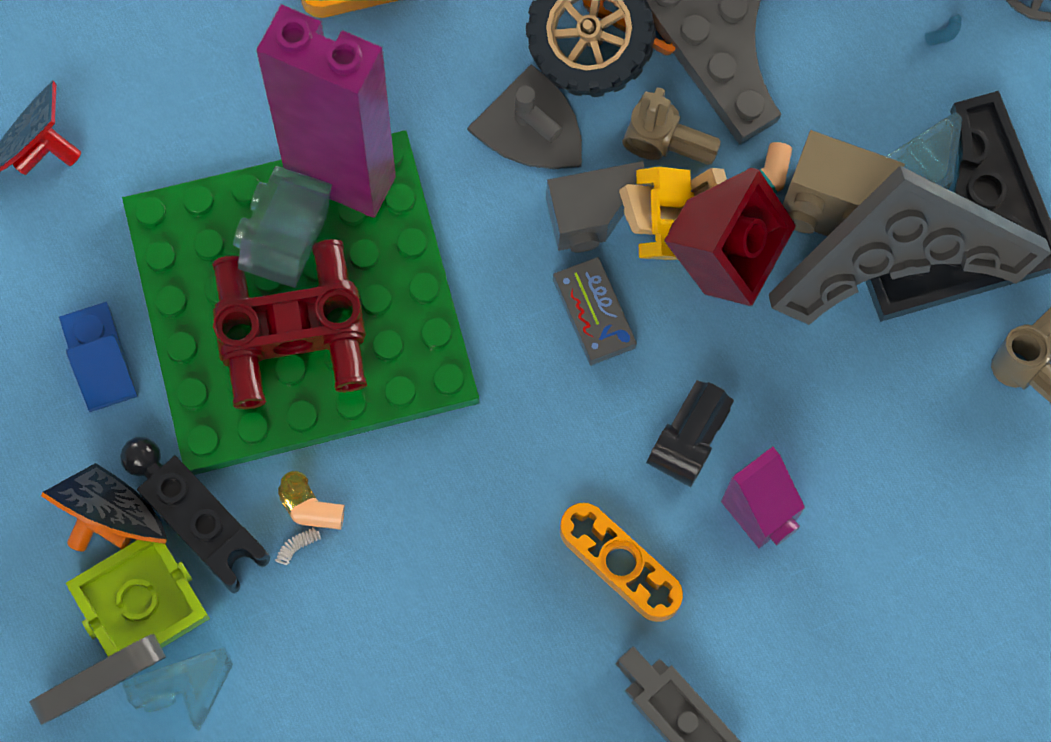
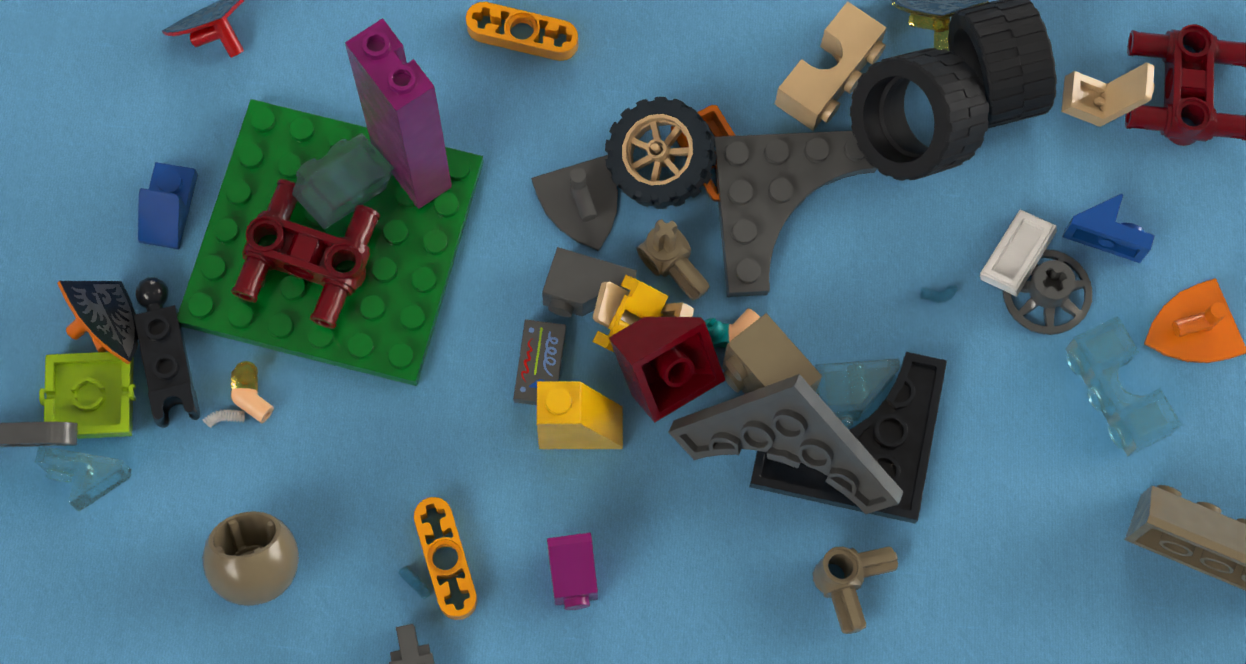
camera: 30 degrees right, 0 degrees up
(426, 673) = (250, 558): none -> dark tan wheel
(600, 602) = (416, 582): none -> dark azure leg
(669, 345) = (577, 417): none -> yellow slope
(686, 443) = (543, 498): black piece -> none

